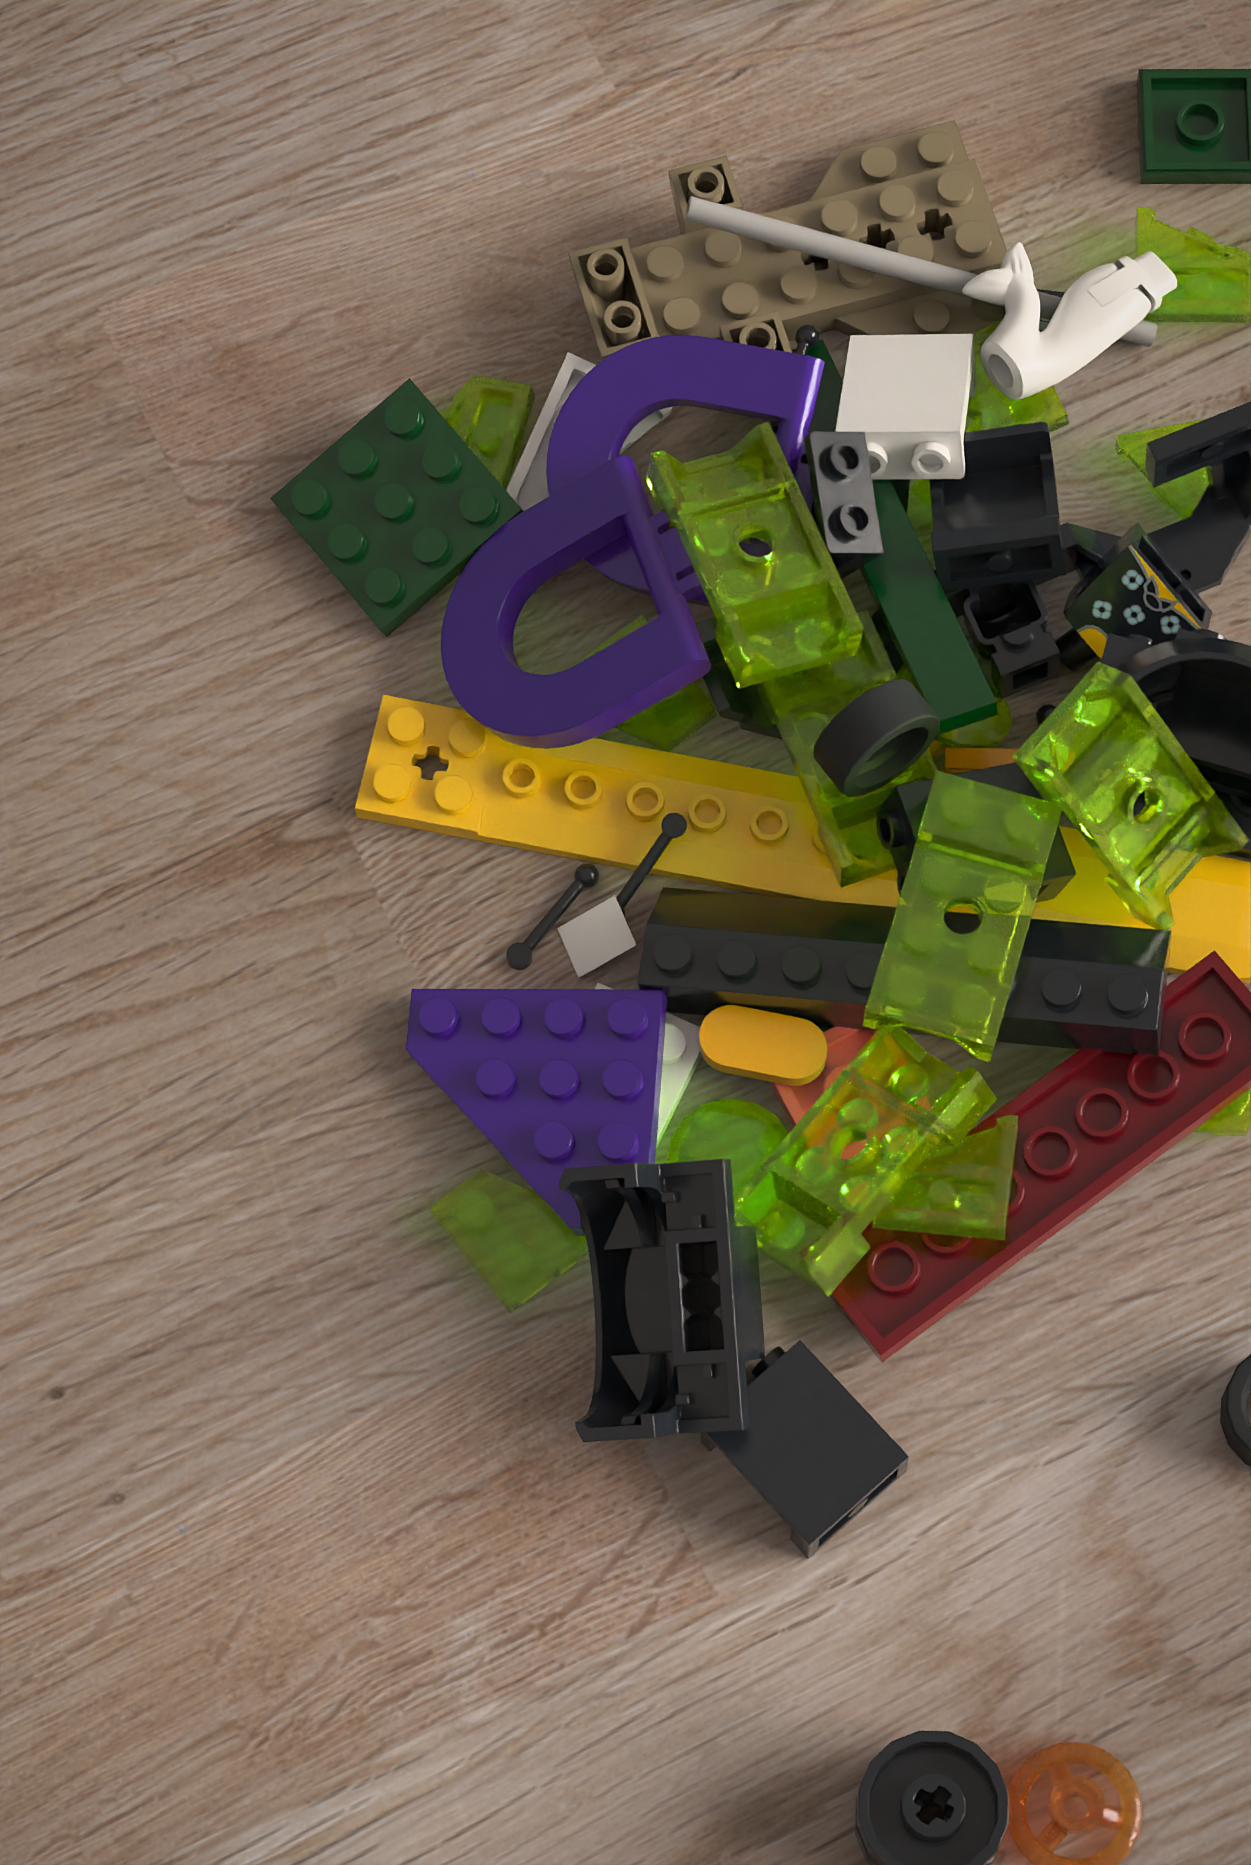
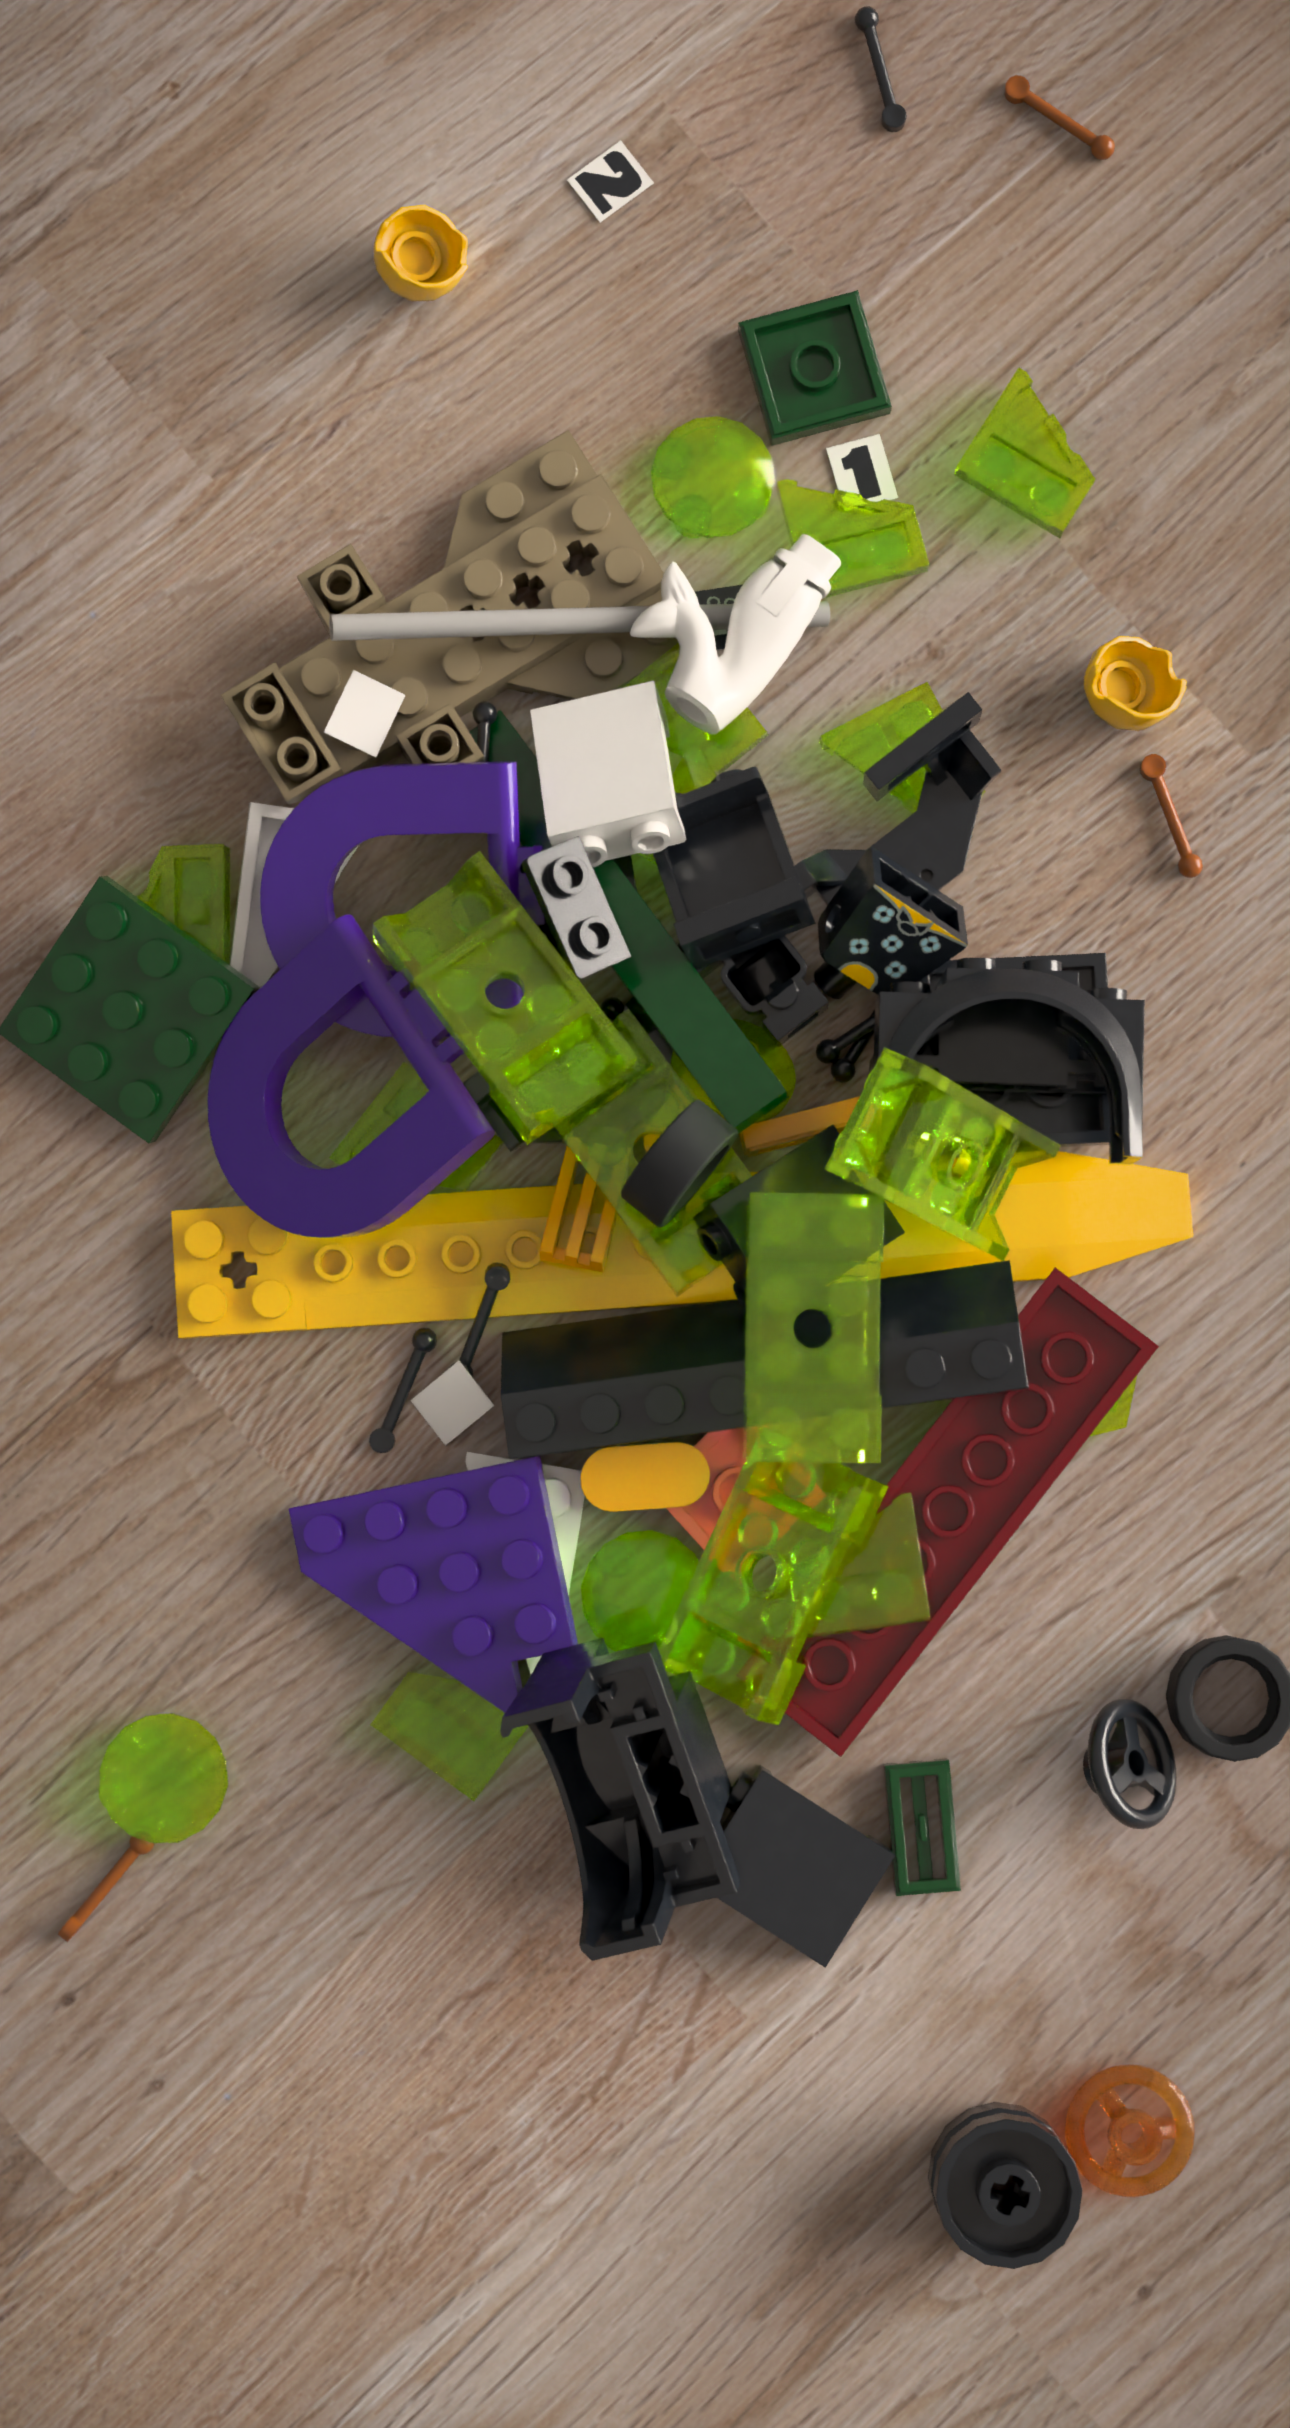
camera: 20 degrees left, 15 degrees up
(174, 1262) = (136, 1848): none -> dark orange hinge
(215, 1204) = (163, 1778): none -> clear neon green dish
(696, 300) = (364, 713): none -> white sticker
(748, 783) = (572, 1254): none -> light orange tile
(933, 1510) = (916, 1771): none -> dark green tile
(1078, 194) = (712, 477): none -> clear neon green dish
(1161, 1442) = (1123, 1763): none -> black piece
(1222, 219) = (863, 469): none -> white sticker

